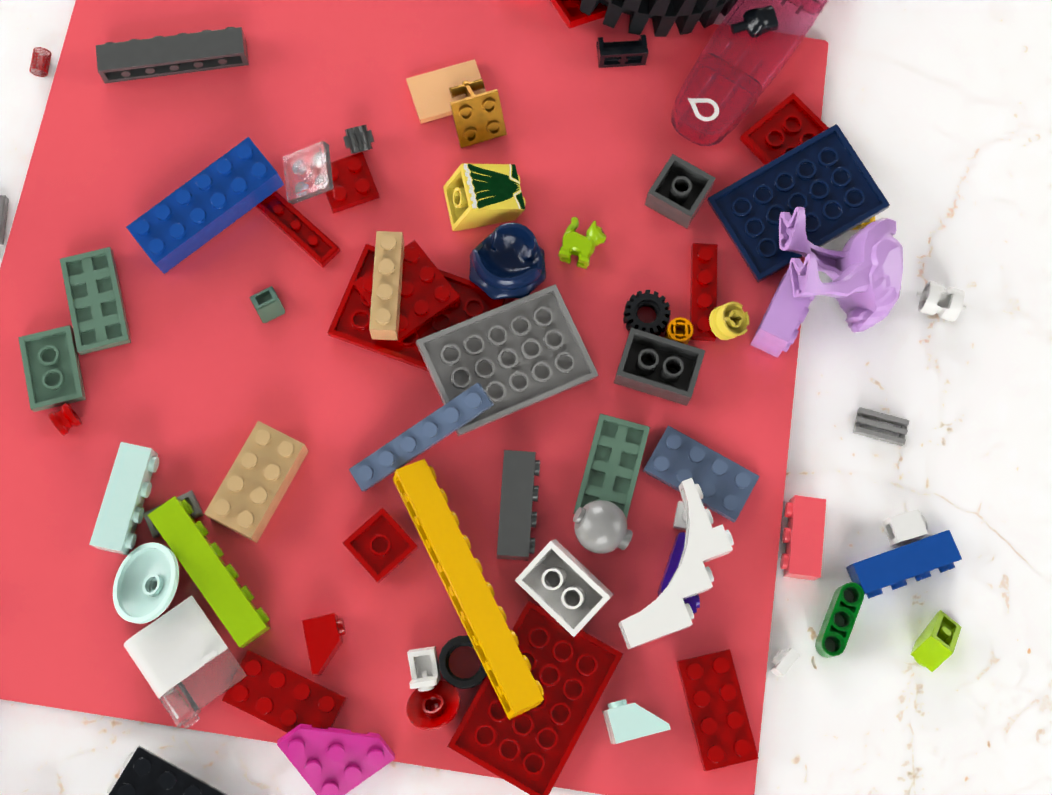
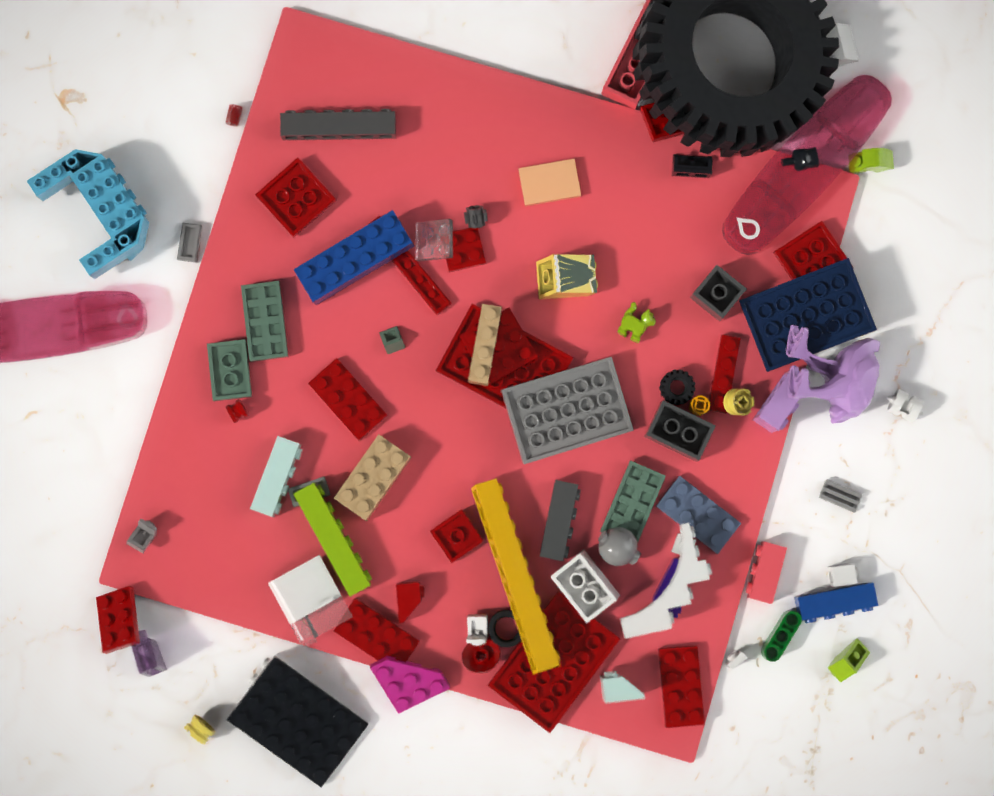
camera: 10 degrees right, 10 degrees up
(125, 145) = (295, 197): none -> red plate
(146, 583) = (280, 540): light aqua dish -> none
(215, 386) = (347, 399): none -> red plate
(421, 437) = (496, 462): sand blue plate -> none
(477, 116) = (569, 211): pearl gold plate -> none
(508, 263) = (577, 334): dark blue piece -> none
(841, 17) = (872, 160): none -> lime brick

